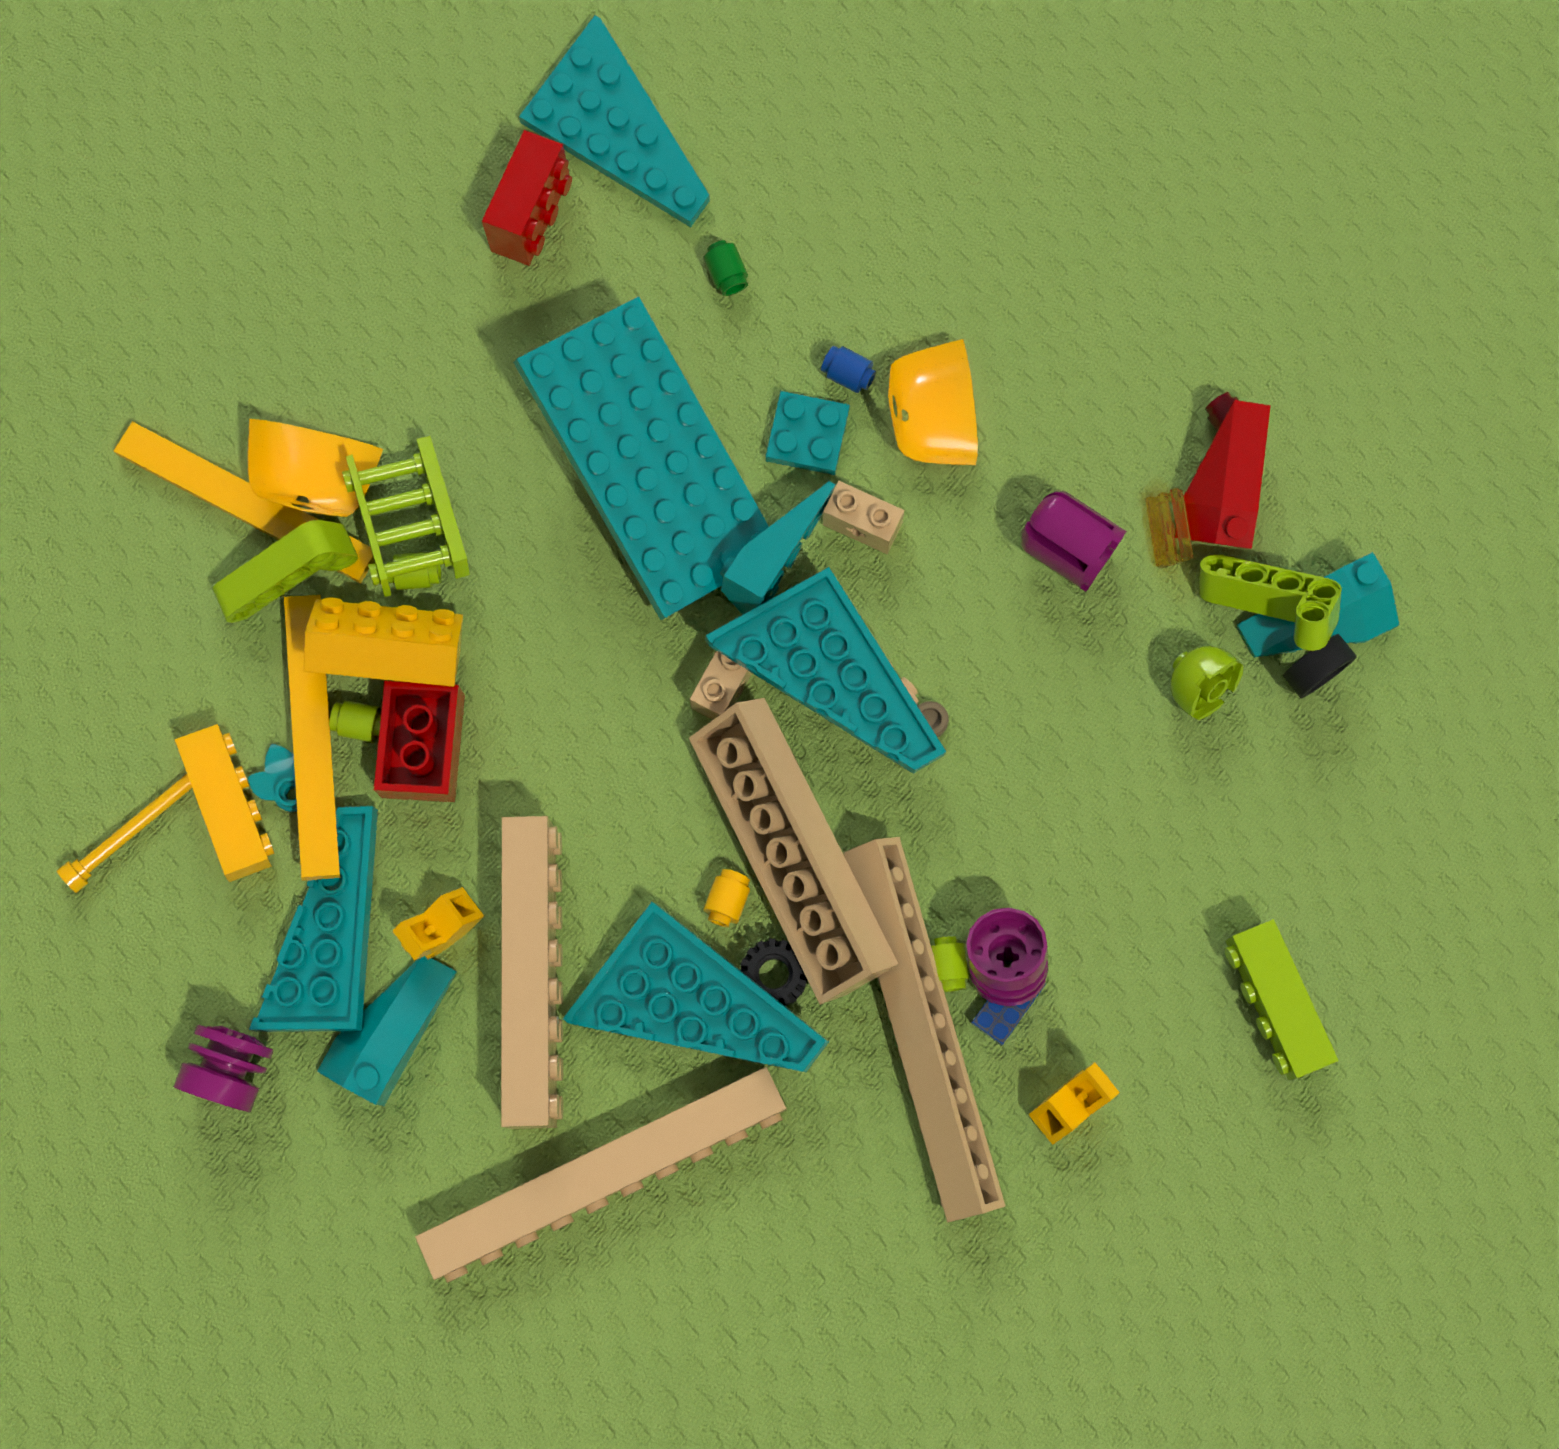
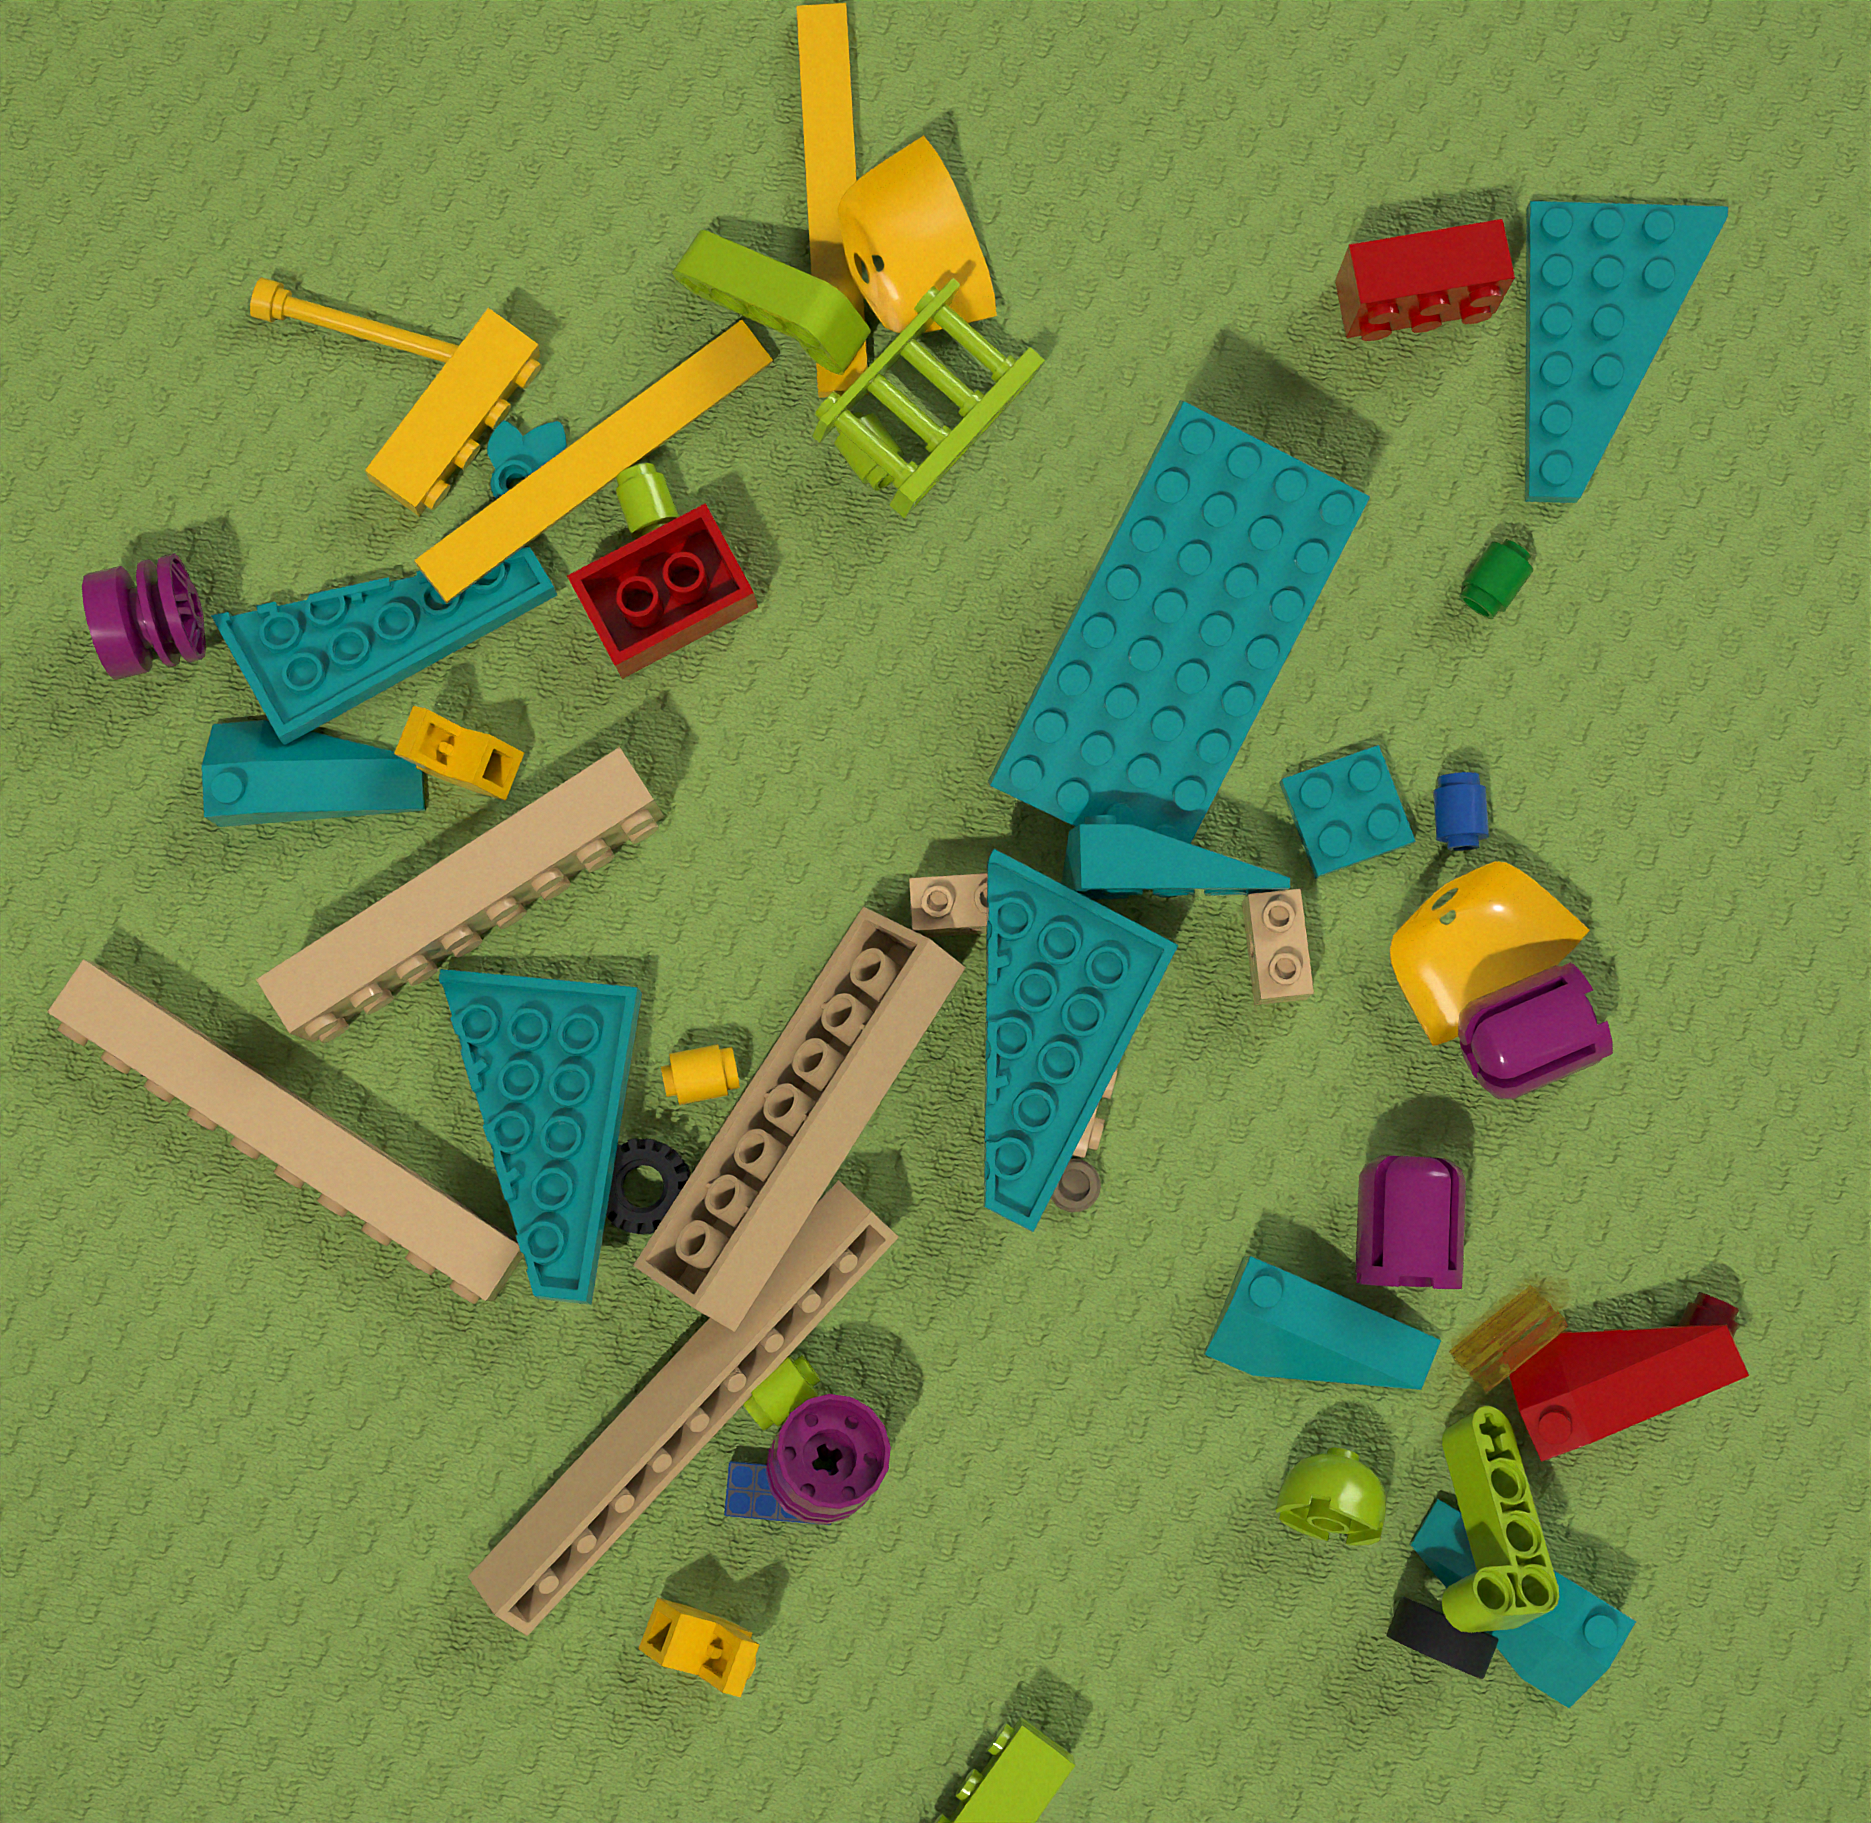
camera: 60 degrees right, 5 degrees up
(383, 642) = (750, 471): yellow brick -> none
(1002, 404) = (1532, 1033): none -> magenta cylinder
(1095, 639) = (1305, 1332): none -> teal wedge

